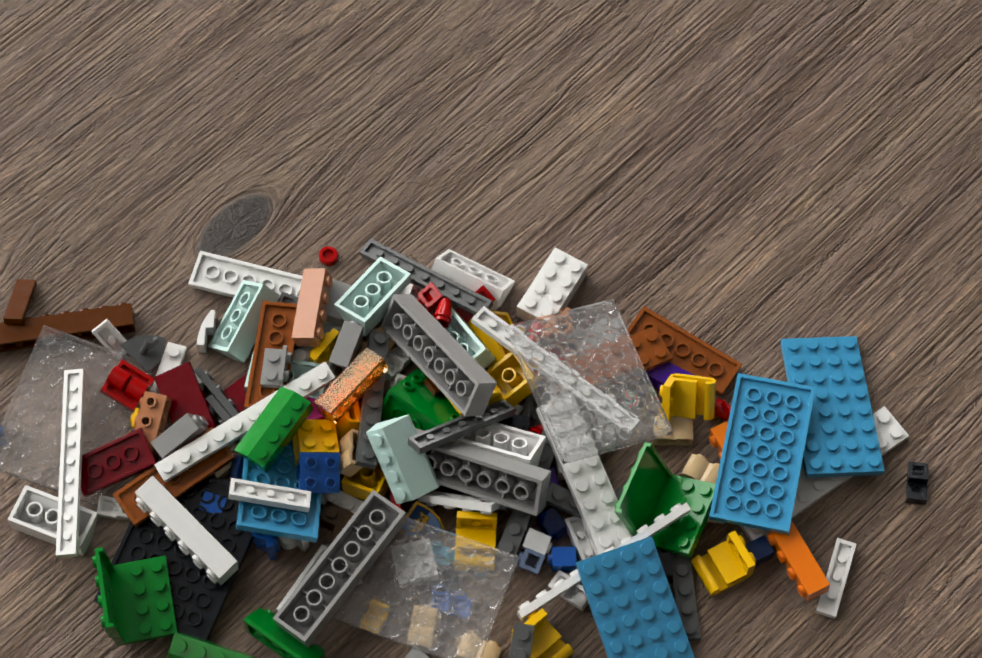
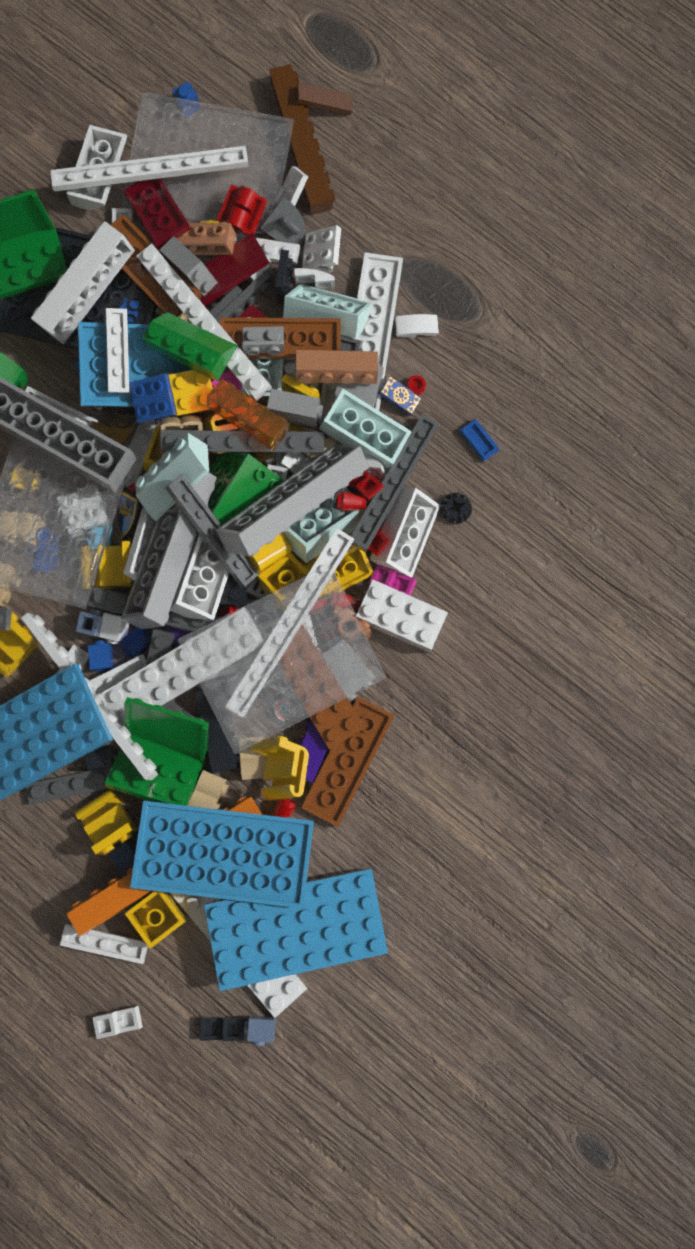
camera: 85 degrees right, 15 degrees up
(179, 320) = (322, 249): none -> white plate
(203, 355) = (284, 274): none -> black plate
(269, 247) = (416, 324): none -> white slope
(341, 266) = (399, 395): none -> tile
(390, 209) = (479, 440): none -> blue tile
(447, 241) = (452, 515): none -> black gear
(515, 295) = (393, 579): none -> dark pink slope
(620, 461) = (219, 750): none -> black brick
(817, 524) = (156, 917): none -> yellow brick
(907, 573) = (117, 1022): none -> white slope
(919, 447) = (260, 1029): none -> sand blue brick

